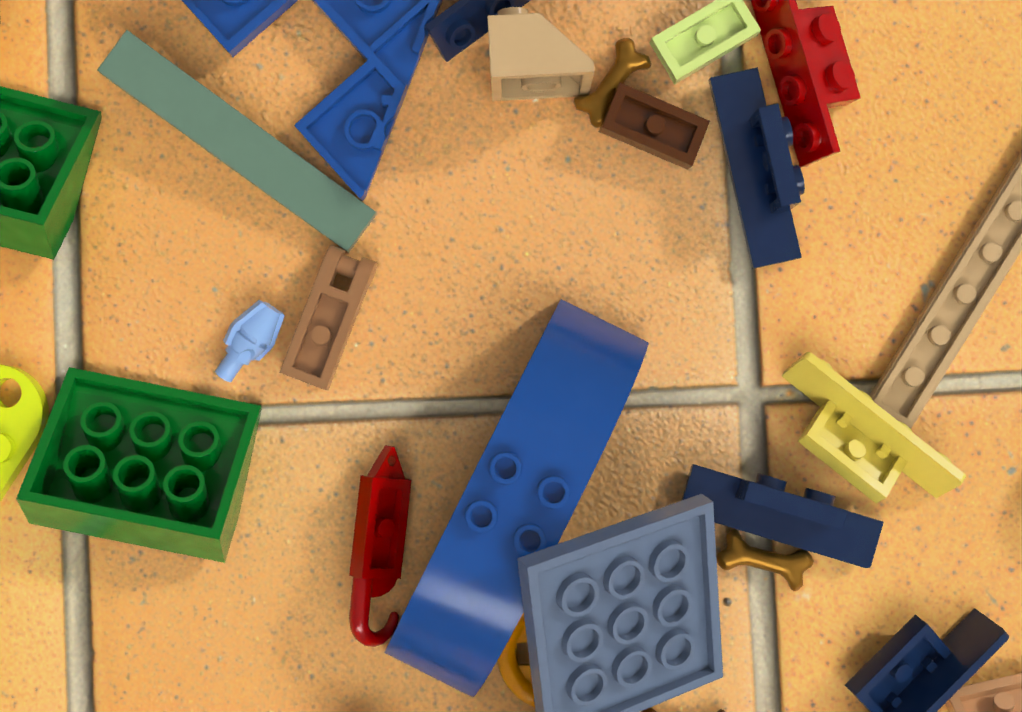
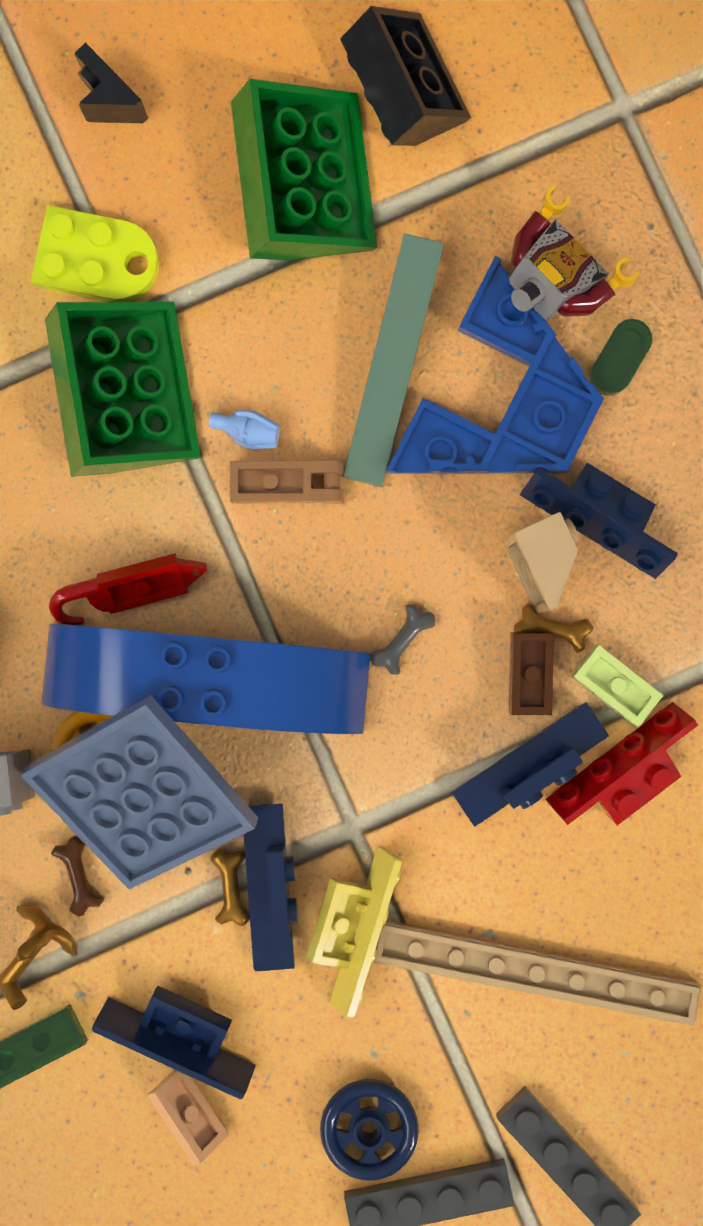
camera: 70 degrees right, 0 degrees up
(571, 276) = (415, 623): none -> dark grey piece

